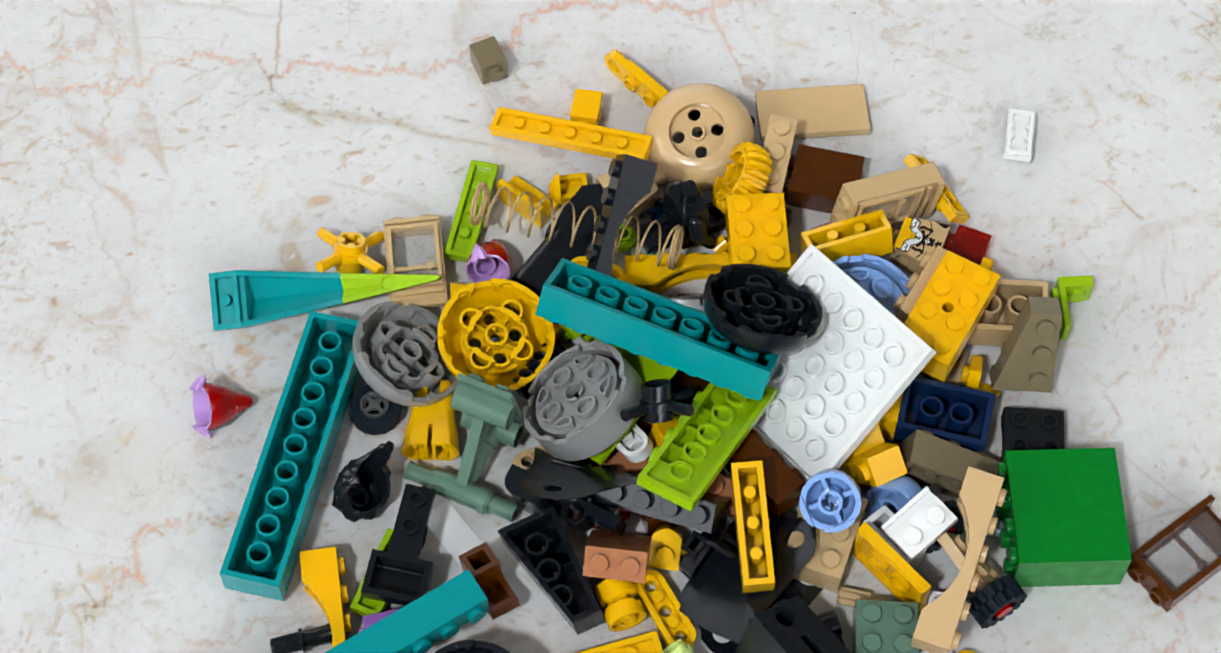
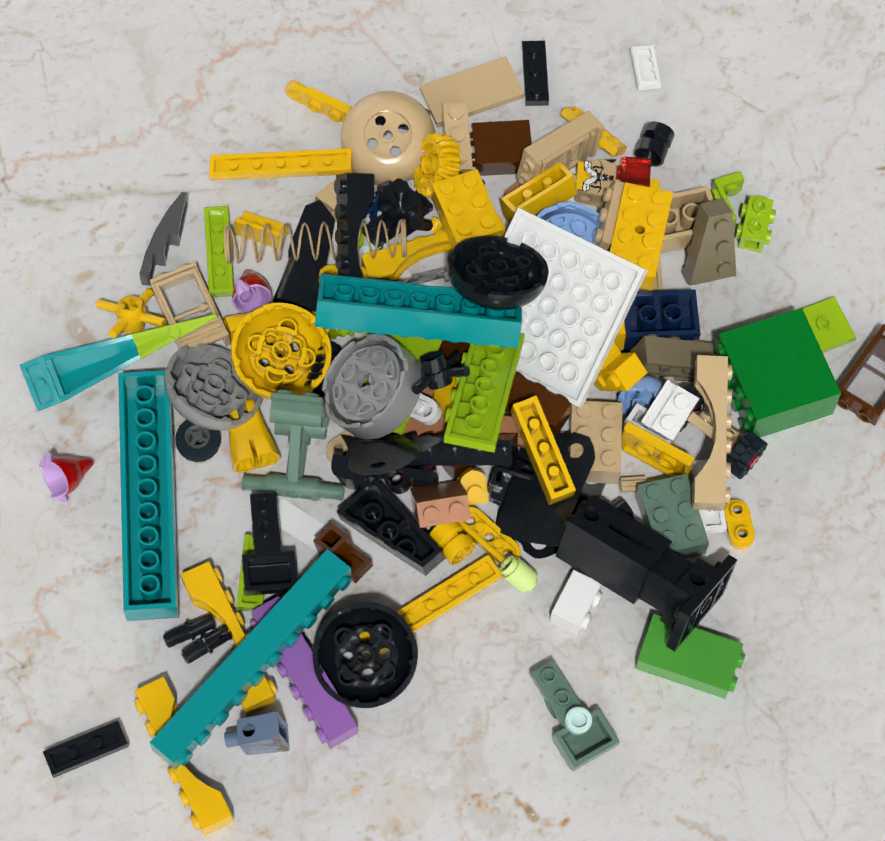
camera: 20 degrees left, 5 degrees up
(288, 619) = (189, 631): none -> black axle
(364, 484) = (214, 504): black hair -> none
(421, 177) = (166, 234): none -> dark grey slope
(488, 60) = (187, 117): dark tan brick -> none
(564, 187) = (291, 209): yellow plate -> none
(587, 106) = (285, 136): yellow brick -> none
(830, 500) = (597, 412): light blue cylinder -> none
(890, 110) = (535, 73): none -> black plate
(972, 374) = (671, 277): yellow plate -> none
(1002, 219) = (655, 143): none -> black wheel
(1031, 429) = (730, 311): black brick -> none
(1095, 335) = (757, 217): none -> lime brick
(1144, 479) = (829, 324): none -> lime plate

